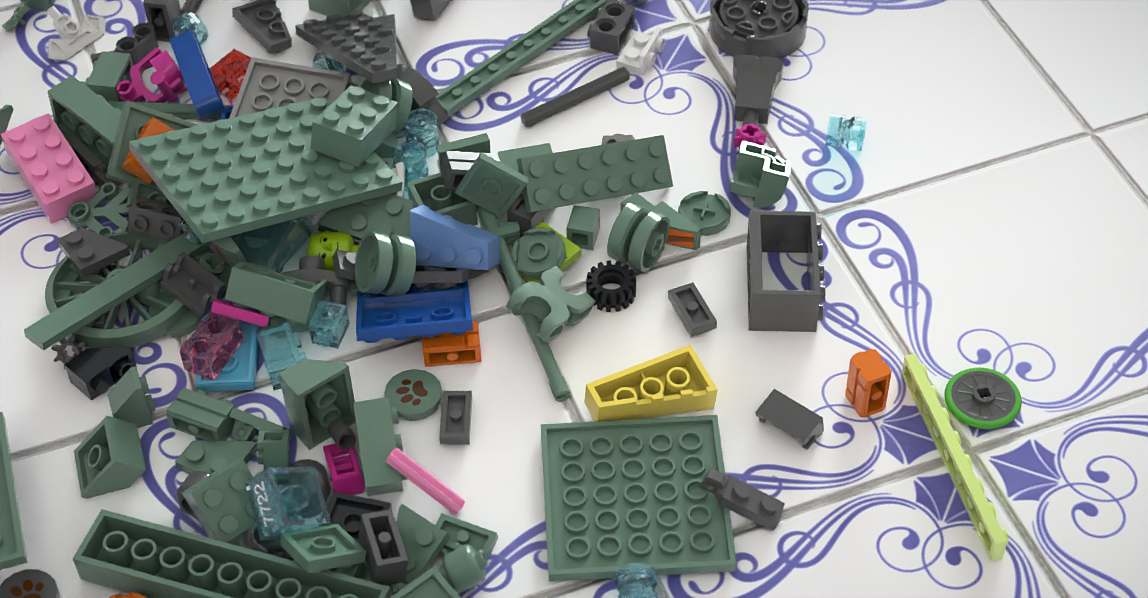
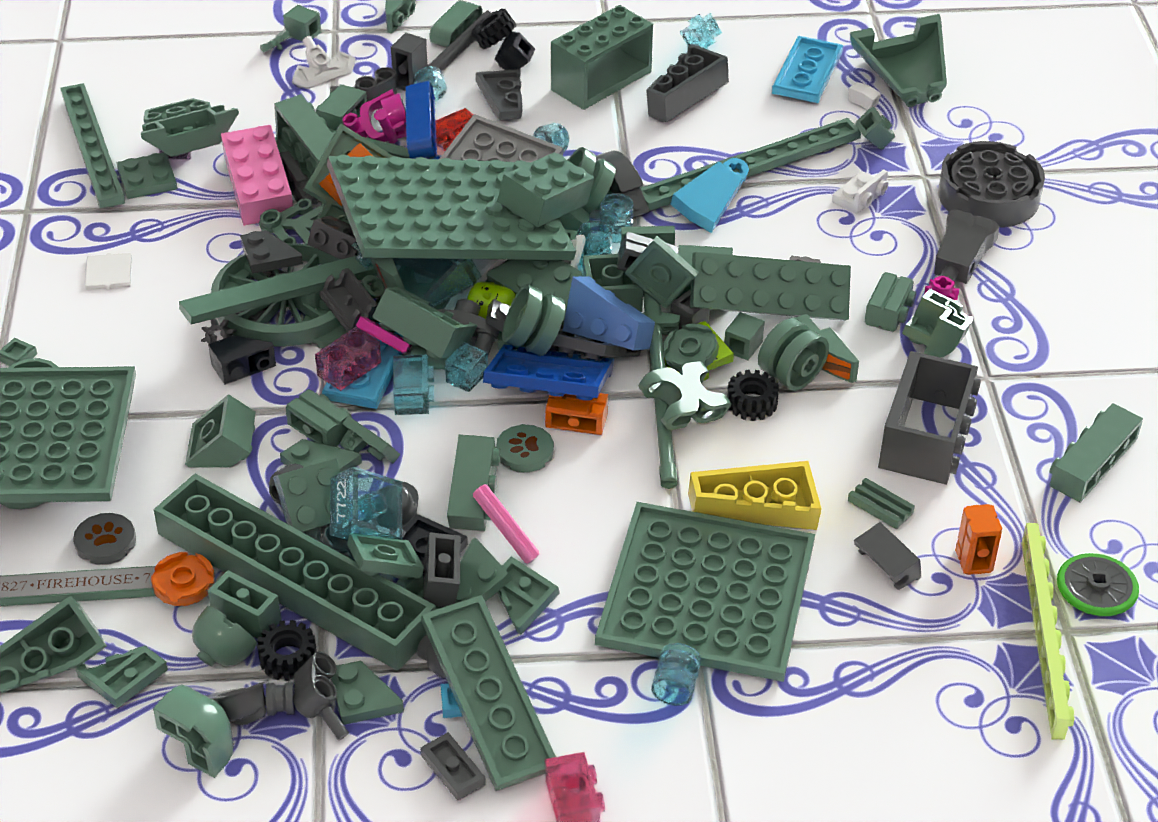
camera: 15 degrees right, 5 degrees down
(129, 399) = (257, 390): sand green slope -> none
(273, 448) = (374, 458): sand green brick -> none
(315, 396) = (427, 425): sand green slope -> none
(342, 434) = (442, 465): dark grey hinge -> none
(344, 470) = (434, 500): dark pink slope -> none
(357, 42) = (581, 125): dark grey wing -> none
(455, 418) = (557, 477): dark grey plate -> none
(464, 567) = (514, 608): sand green head -> none
(503, 87) = (710, 193): none -> medium azure piece
(574, 97) = (780, 218): dark grey axle -> none
(611, 27) = (839, 162): dark grey brick -> none
(692, 309) = (826, 434): dark grey plate -> none
(705, 160) = (890, 302): none -> sand green brick
(706, 211) = (873, 350): sand green tile -> none
(744, 499) = (813, 616): dark grey hinge -> none
(766, 363) = (883, 500): none -> sand green tile
(846, 131) = (1044, 306): clear light blue wheel -> none
(939, 267) = (1095, 452): none -> sand green brick

